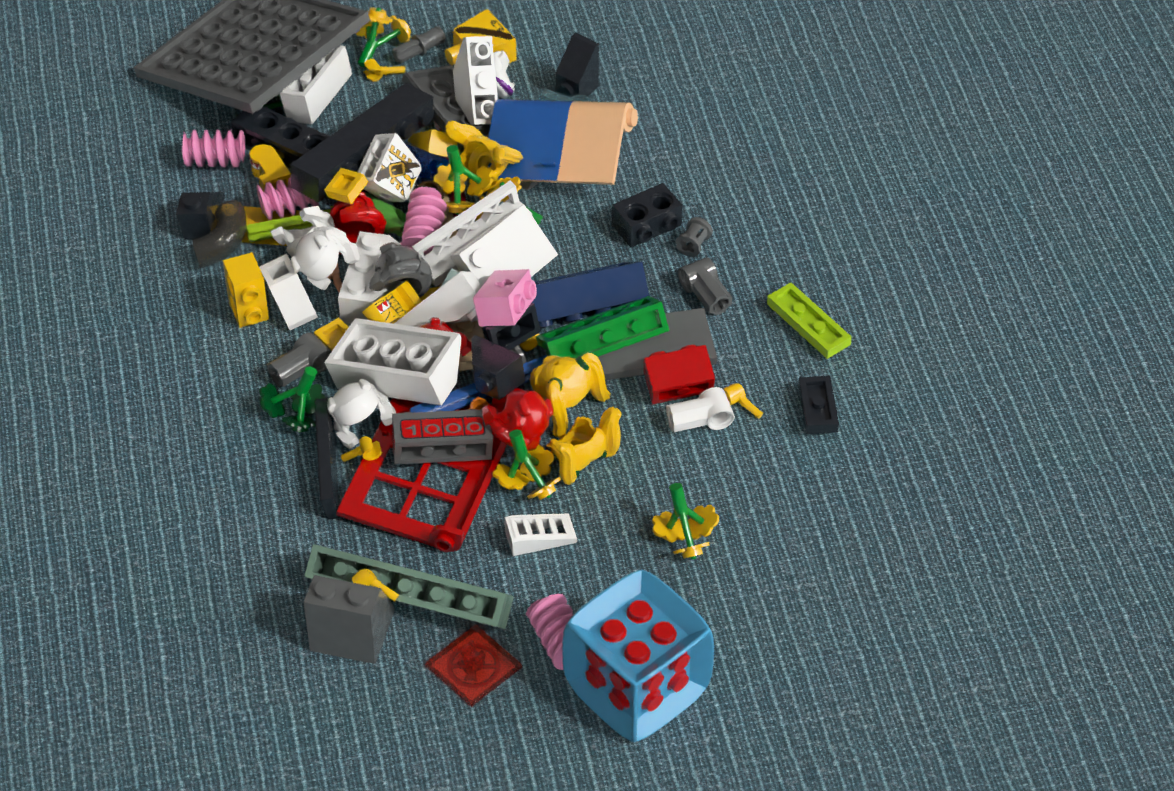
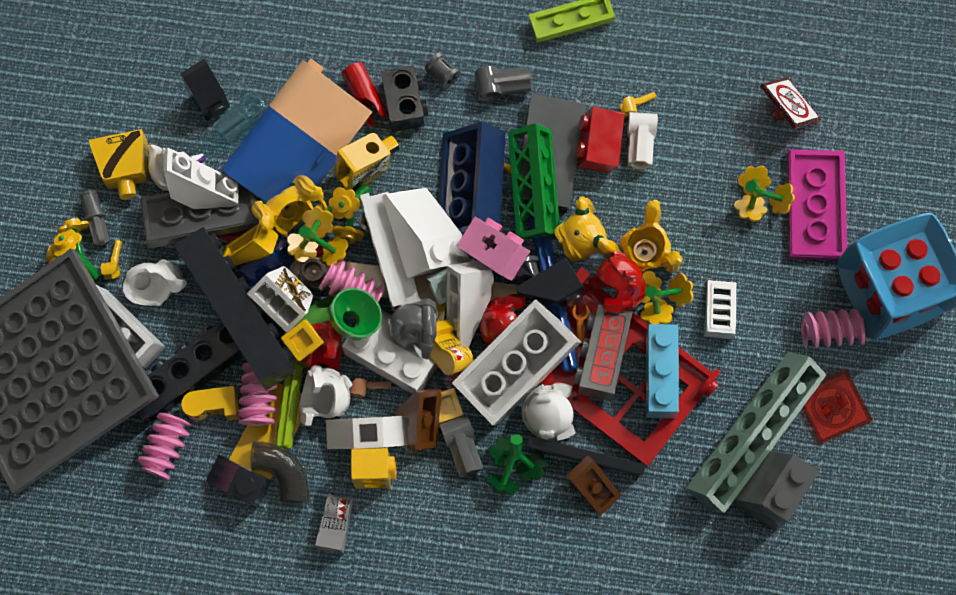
camera: 70 degrees left, 25 degrees up
(184, 290) = (334, 524): none -> light grey leg
(296, 469) = (593, 485): none -> reddish brown slope
(312, 314) = (423, 414): none -> reddish brown slope
(318, 254) = (368, 388): white helmet -> none
(366, 89) = (152, 283): none -> white hair
(367, 449) = (592, 417): yellow hand -> none
(368, 578) = (755, 461): yellow hand -> none
(392, 204) = (362, 307): none -> green piece
(440, 484) = (662, 371): none -> medium azure brick
(563, 199) = (364, 160): none -> yellow torso
(645, 178) = (363, 89): none -> red piece
(722, 581) = (819, 210): none -> dark pink tile
(806, 521) = (789, 103): none -> piece
(818, 404) = (665, 46): black plate -> none

